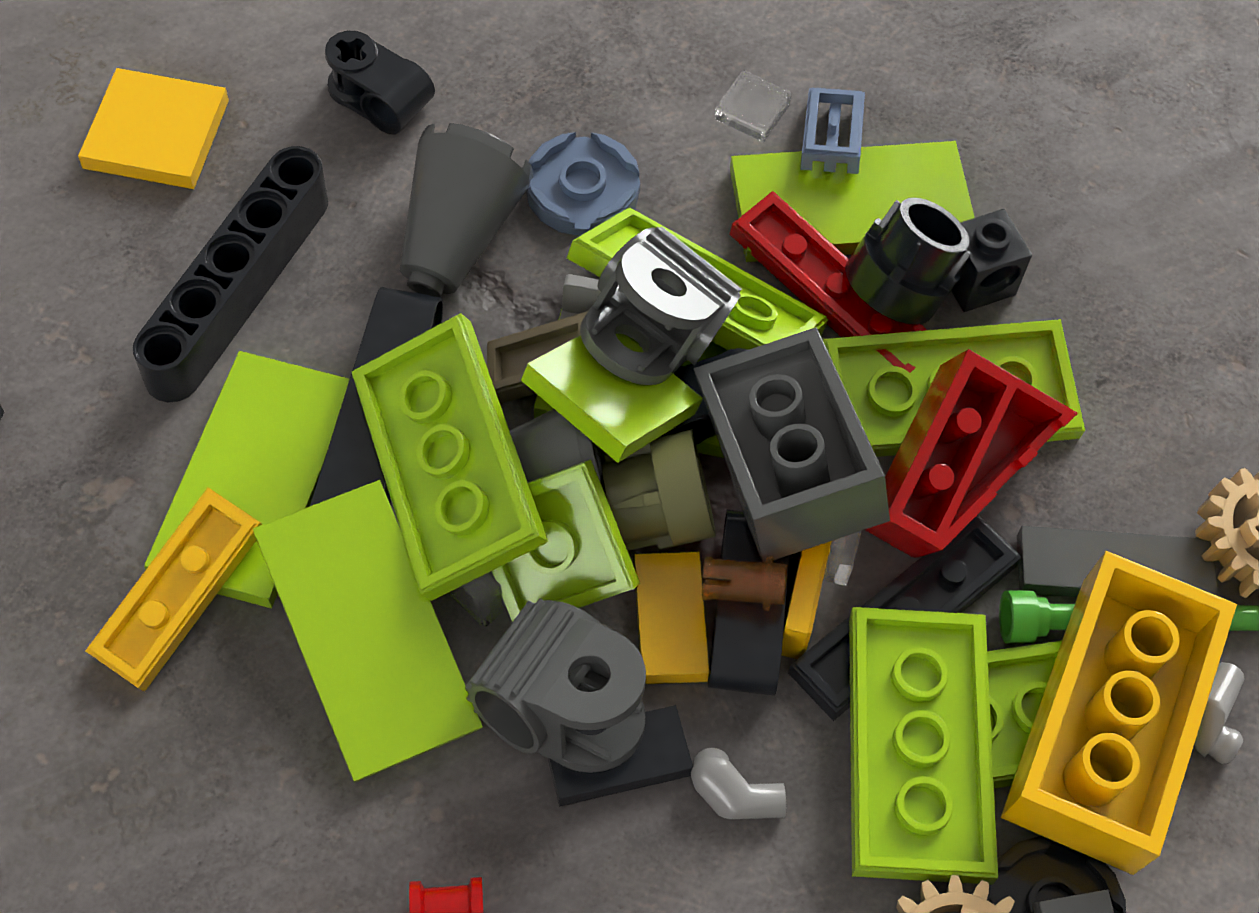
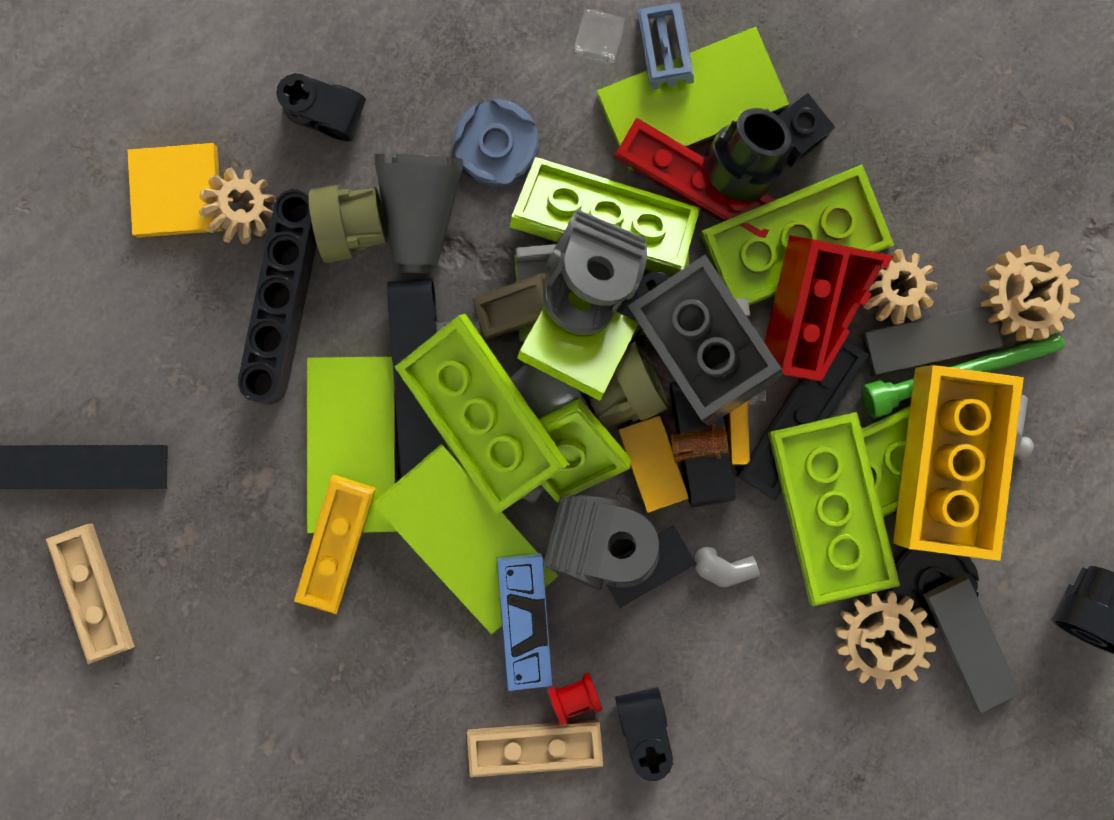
camera: 10 degrees left, 25 degrees up
(222, 151) = (233, 190): none -> tan gear
(357, 201) = (346, 221): none -> olive piece
(409, 772) = (524, 621): none -> medium blue tile
(1080, 479) = (915, 286): none -> tan gear

